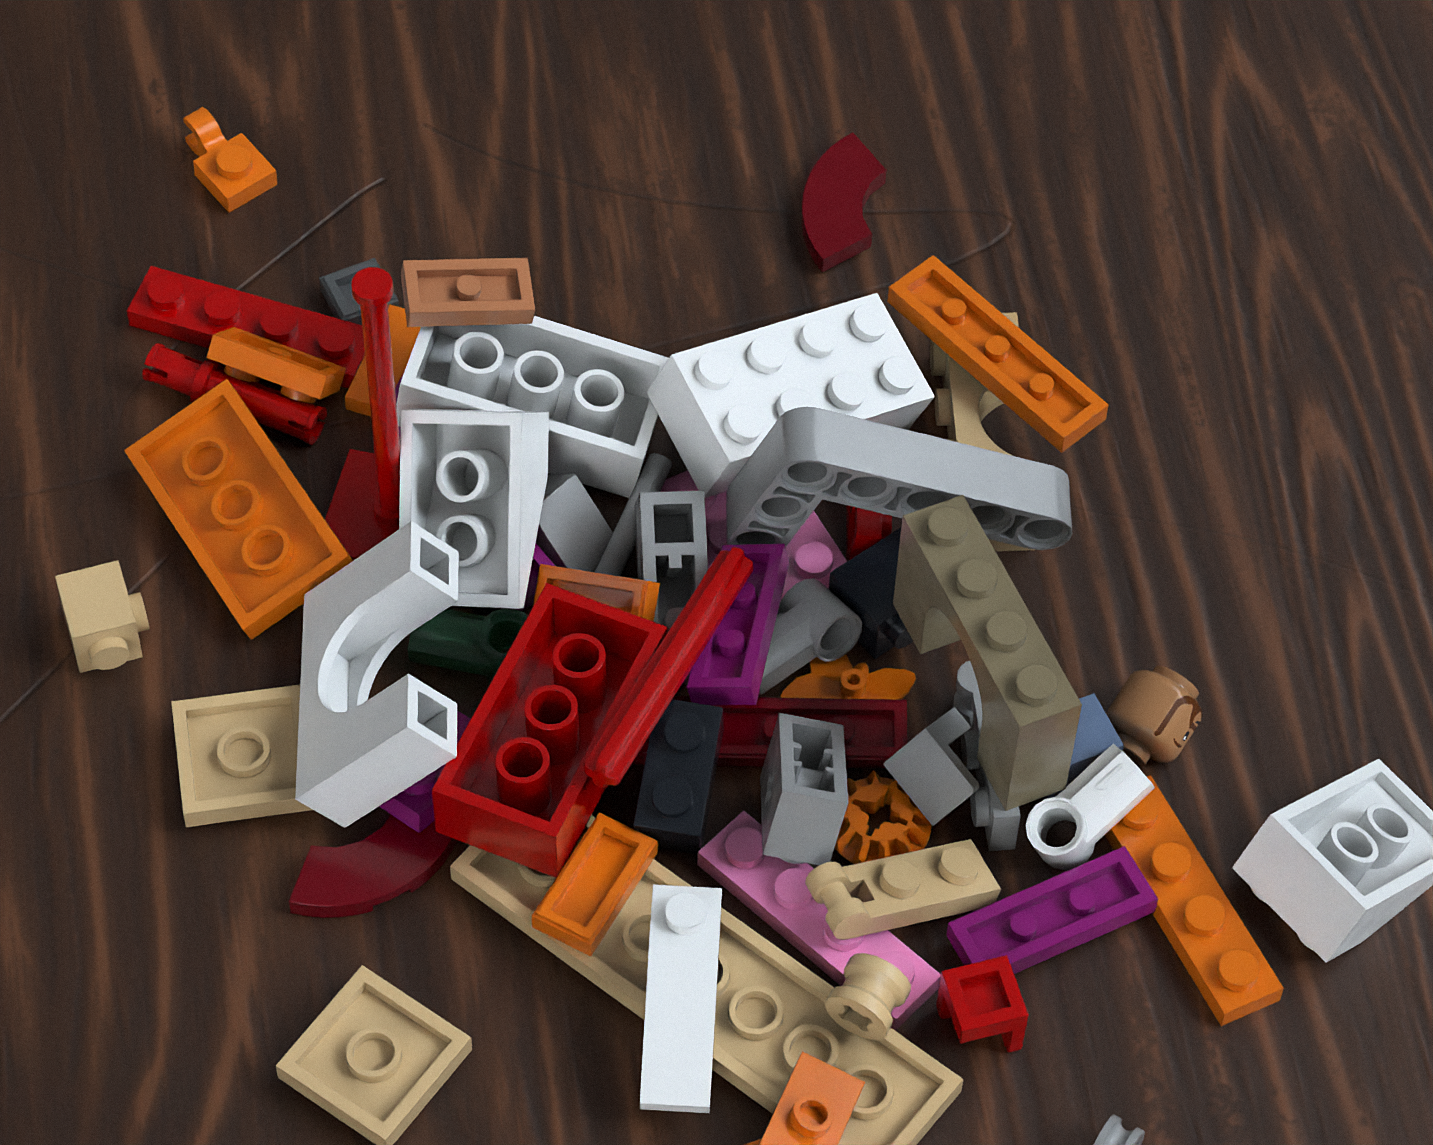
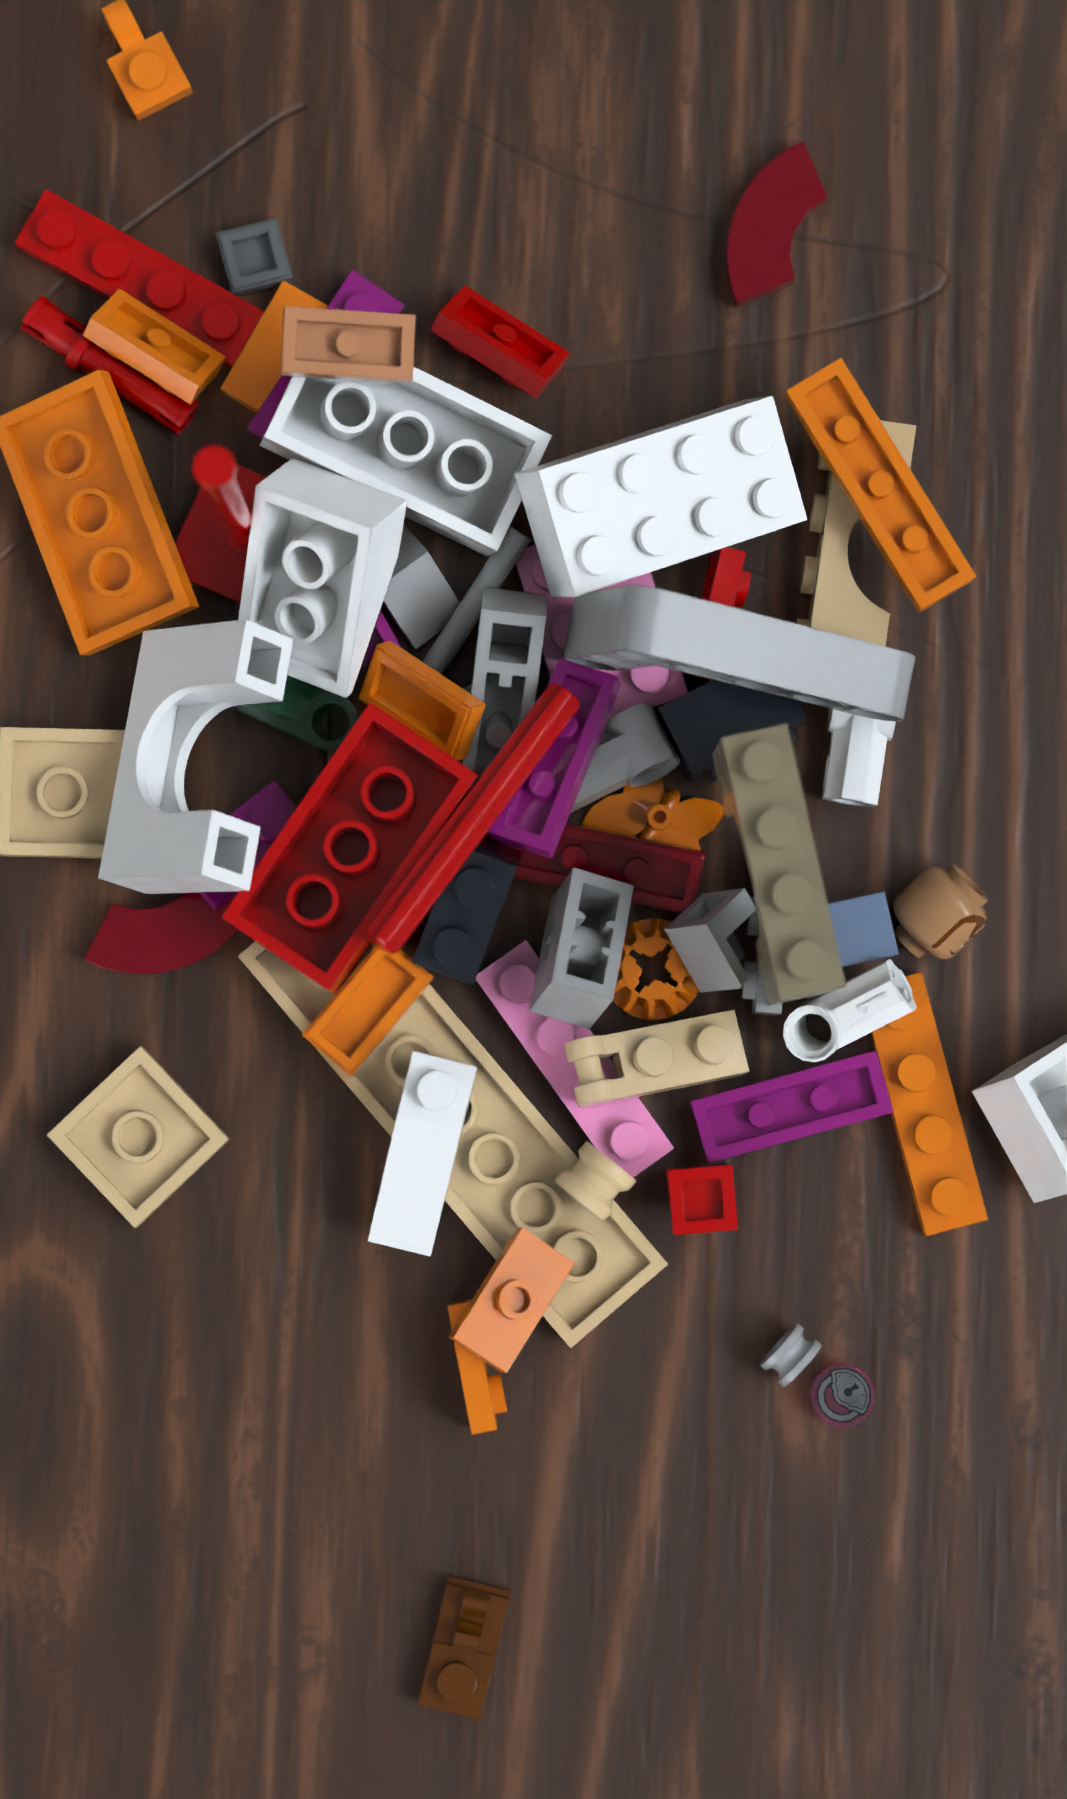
camera: 10 degrees right, 30 degrees up
(606, 318) = (499, 341): none -> red plate
(1039, 582) = (855, 758): none -> white piece

